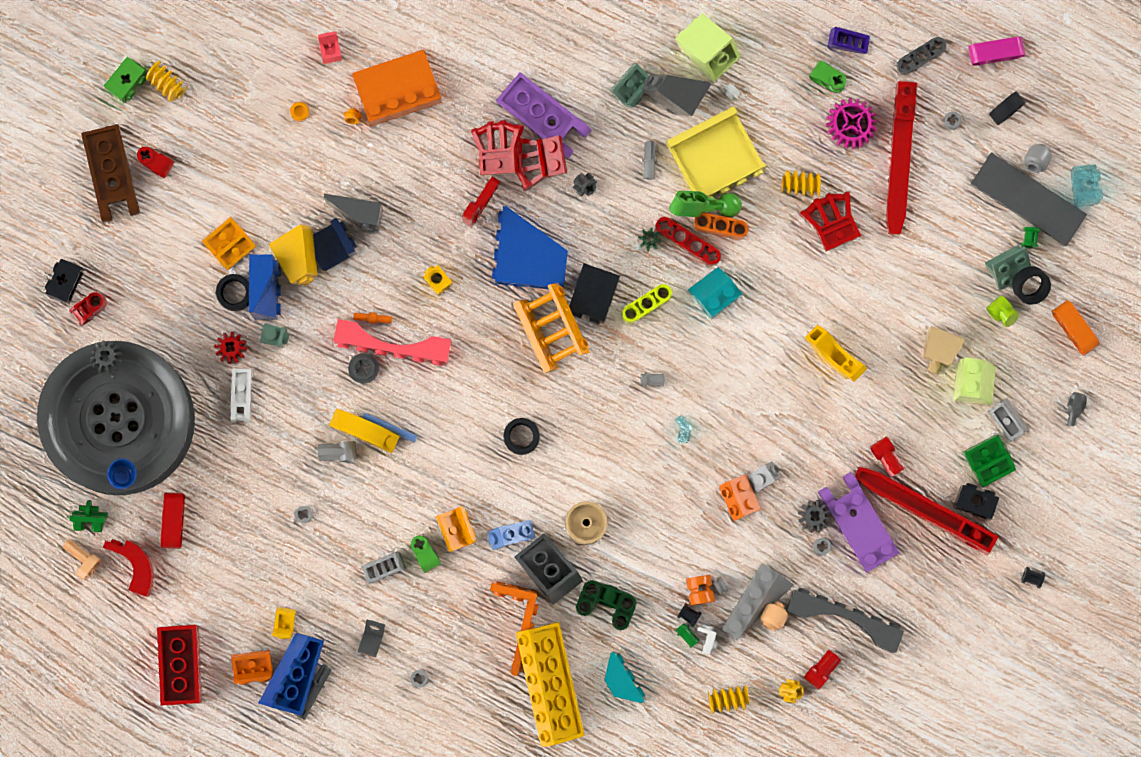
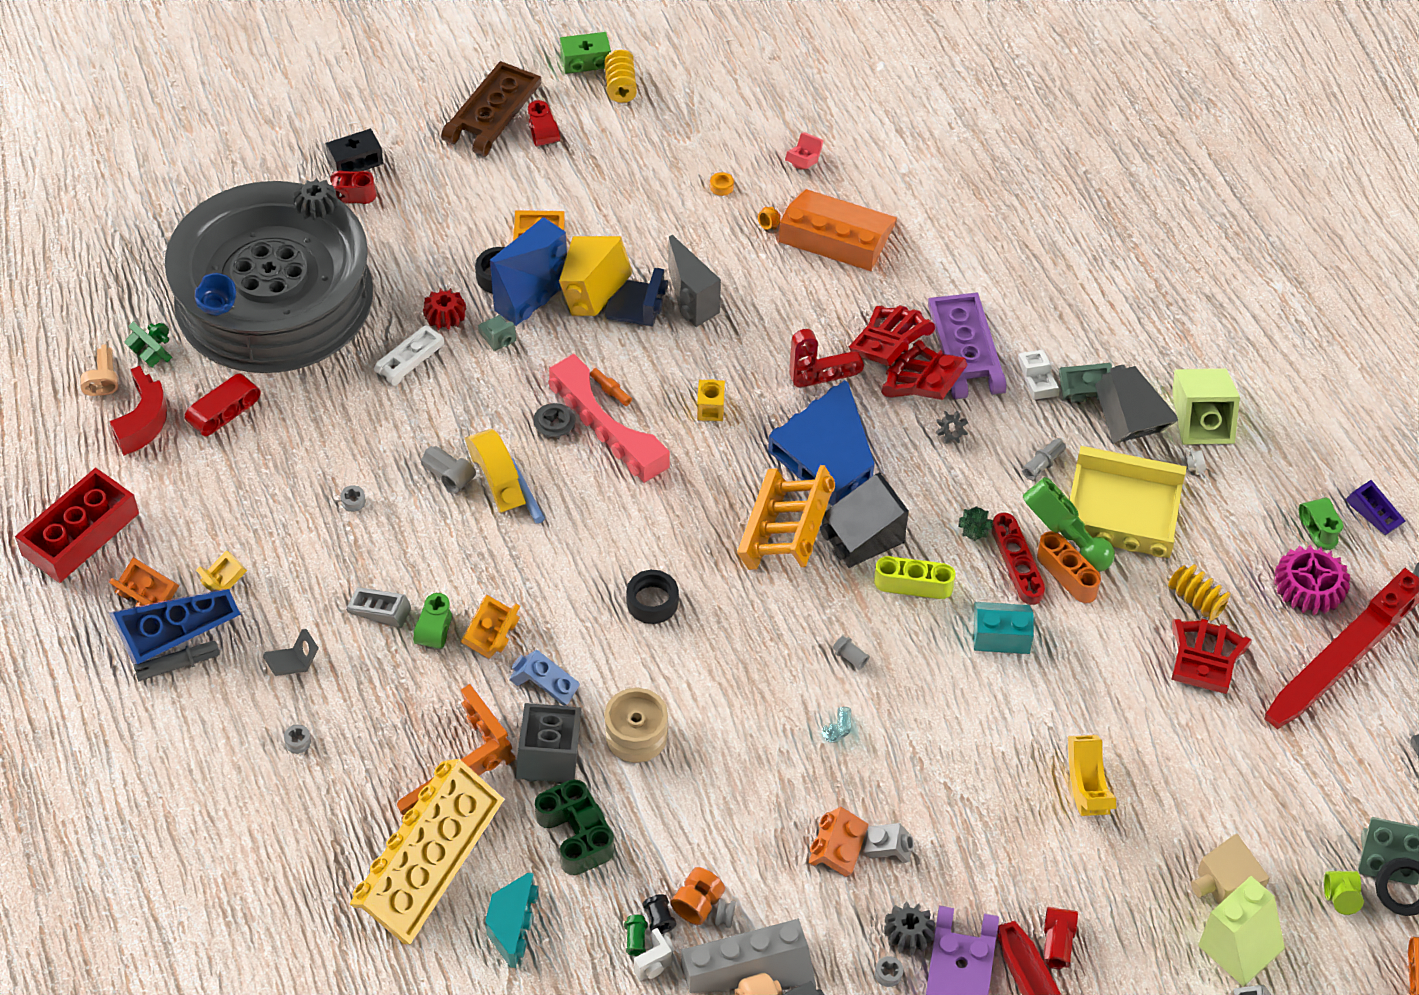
camera: 45 degrees right, 30 degrees down
(598, 101) = (1037, 374): none -> white slope

